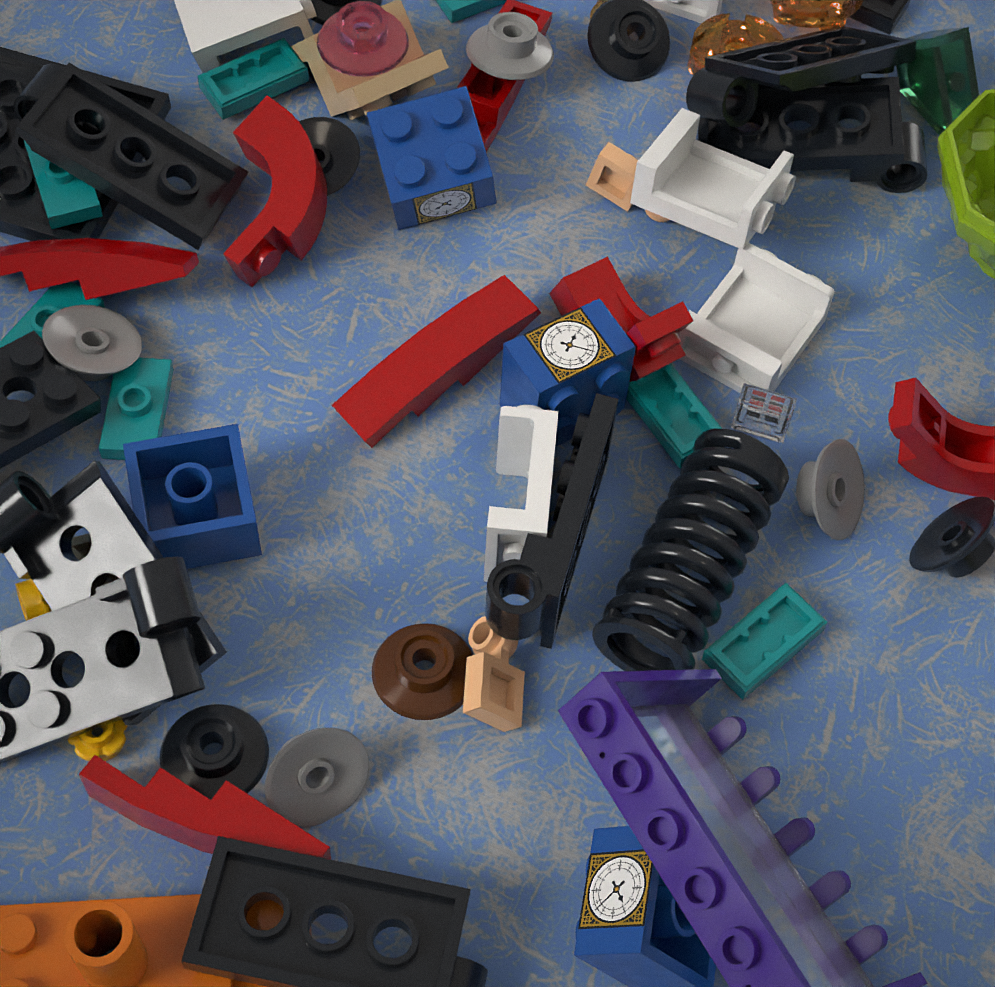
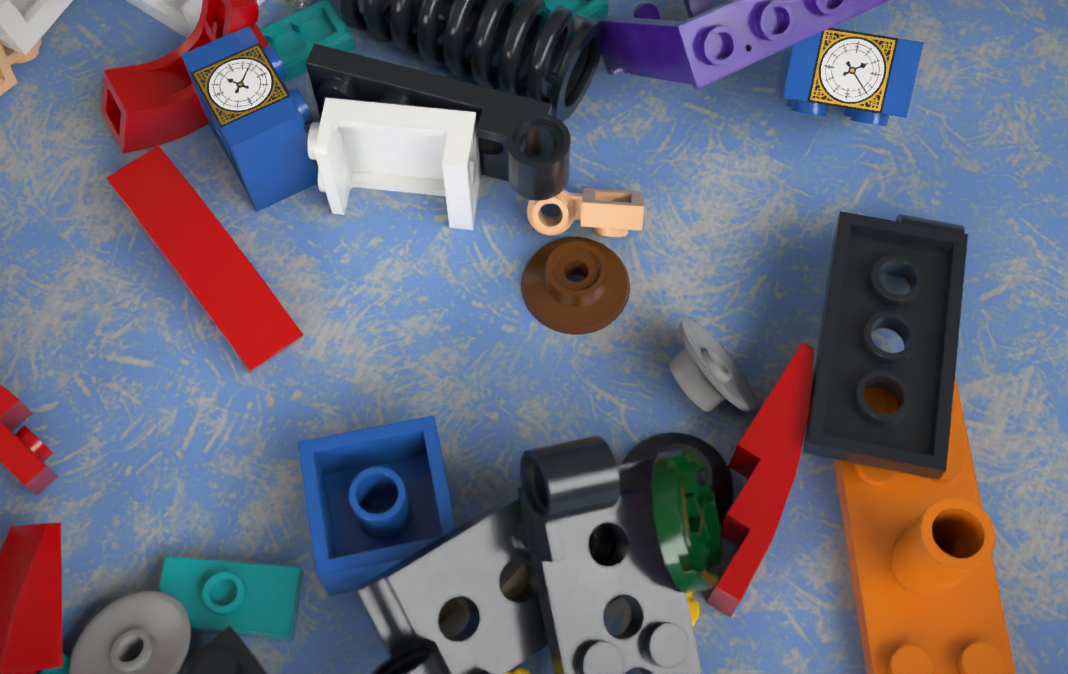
camera: 85 degrees left, 5 degrees up
(146, 719) = (686, 520): none -> dark green tile

